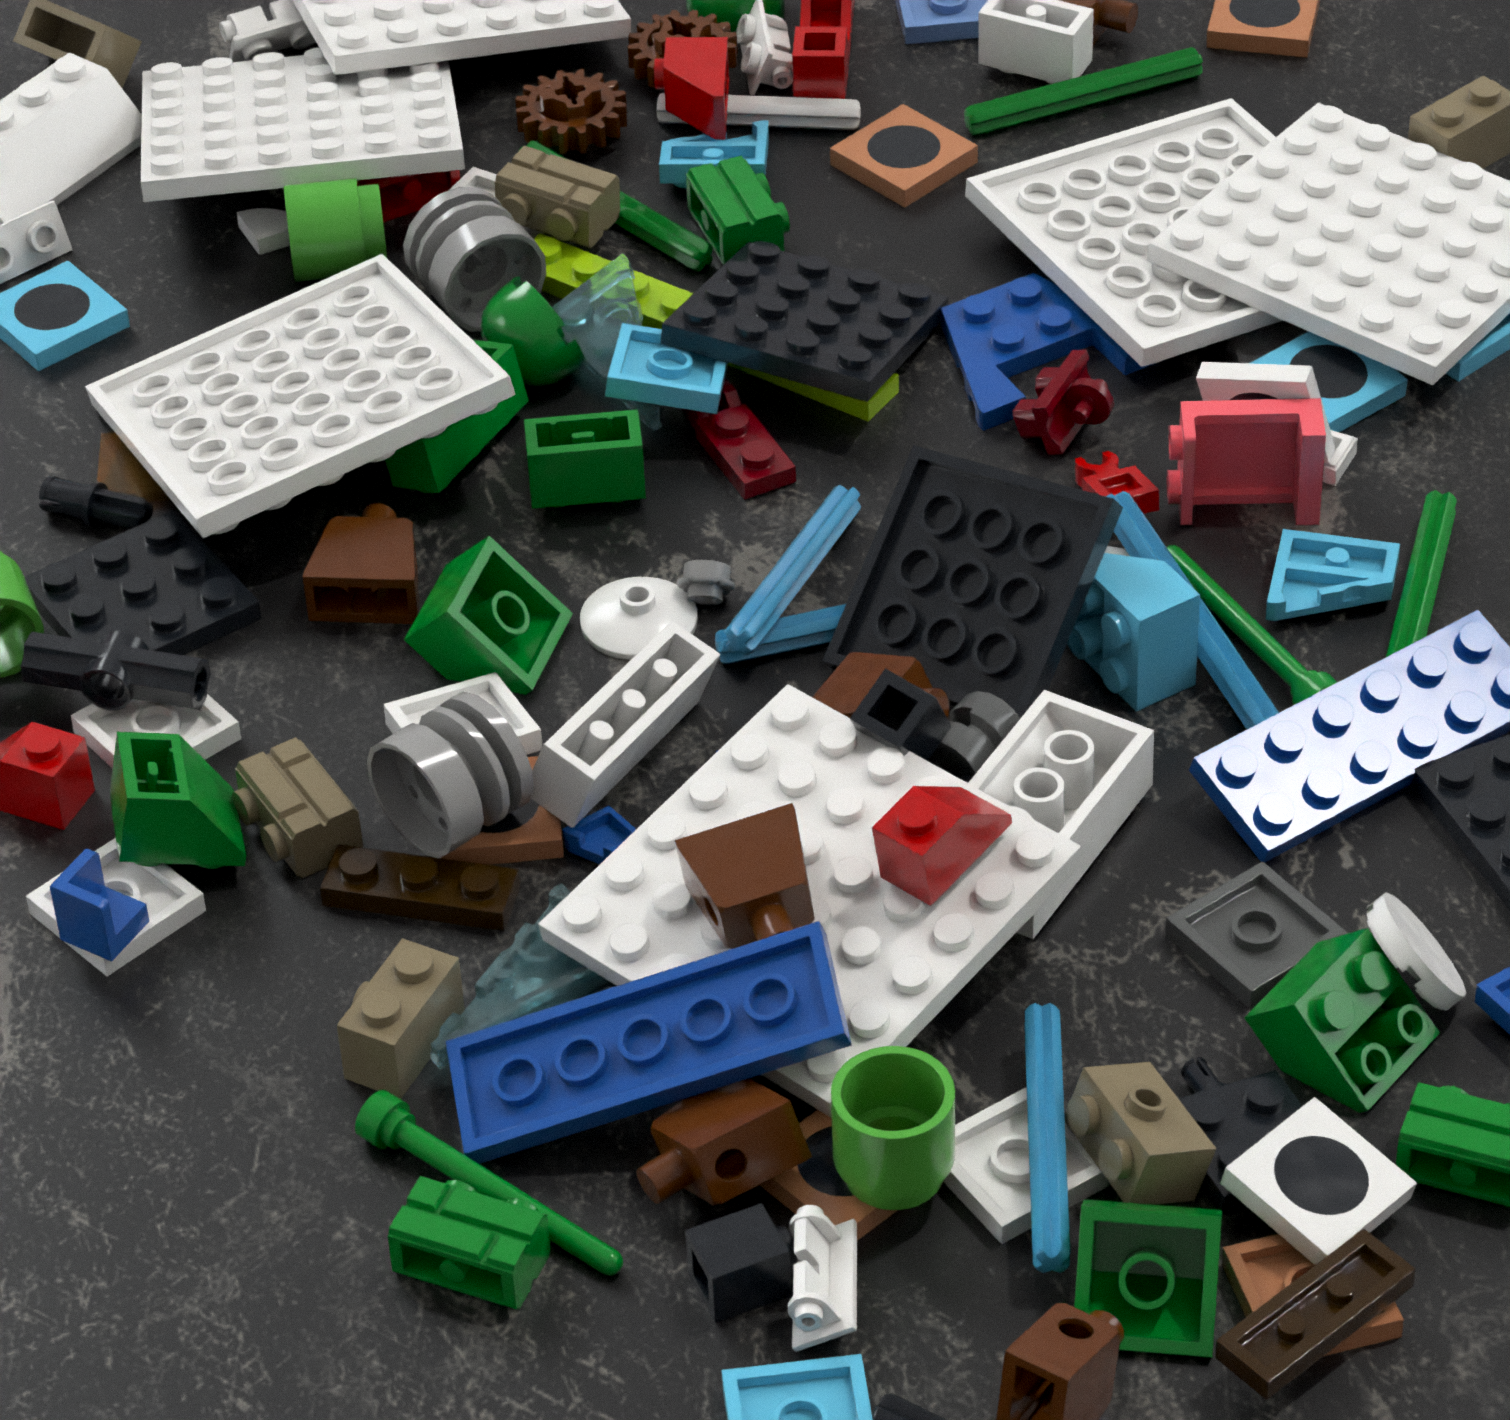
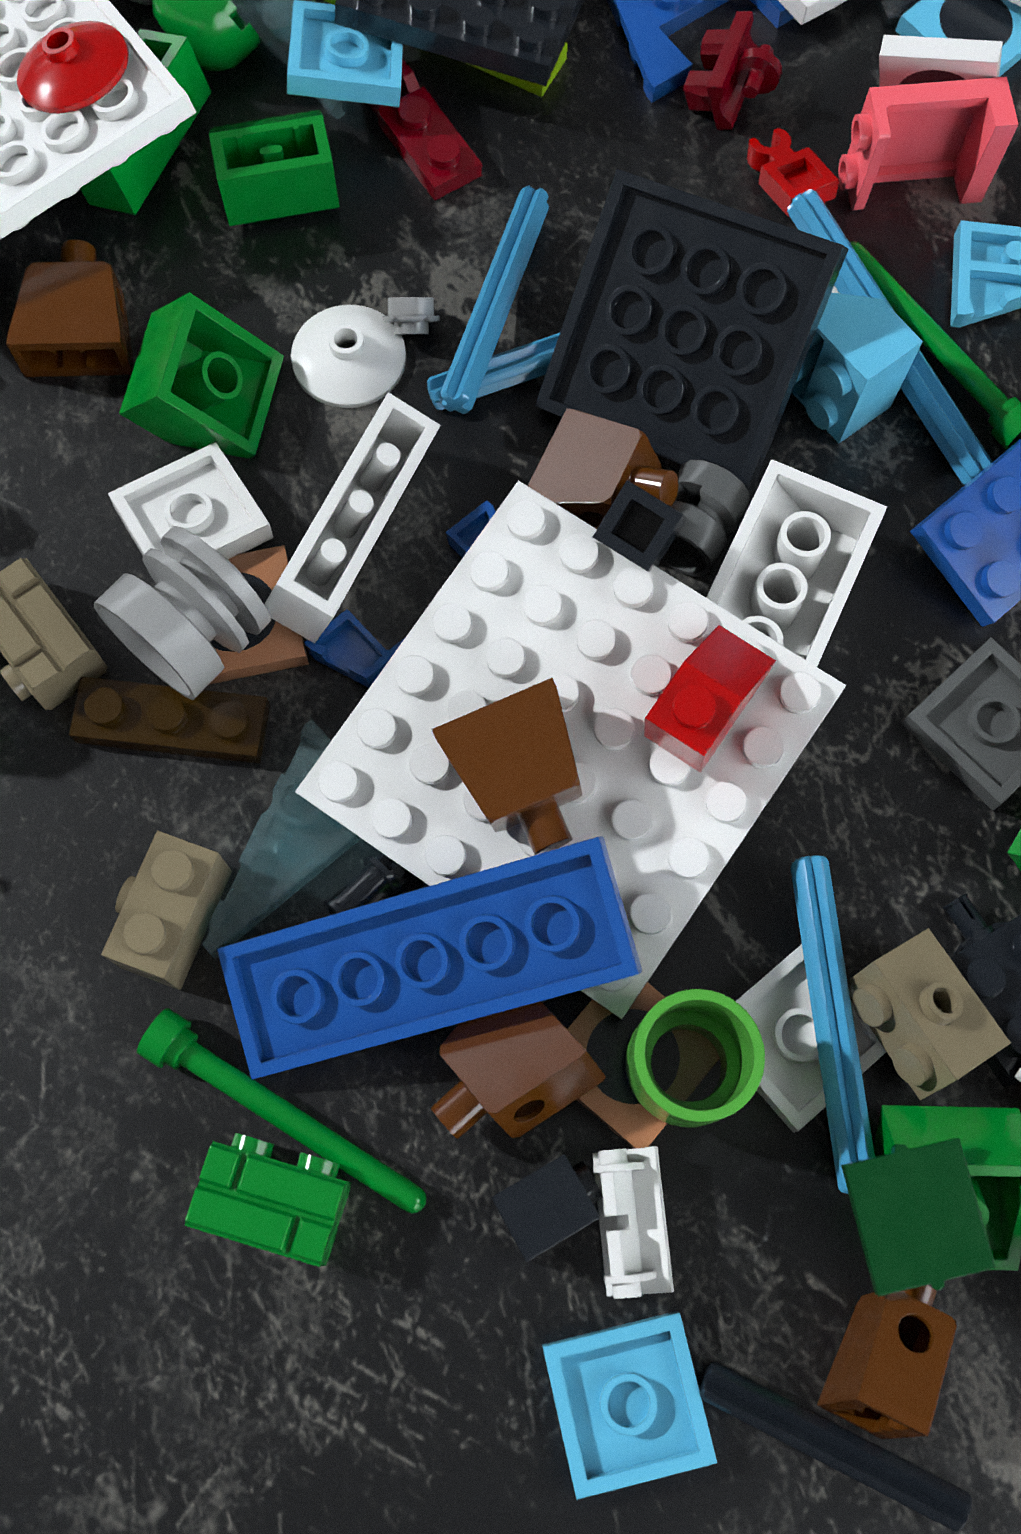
camera: 10 degrees left, 30 degrees up
(400, 357) = (72, 67): none -> red dish
(1090, 1242) = (918, 1216): none -> dark green piece

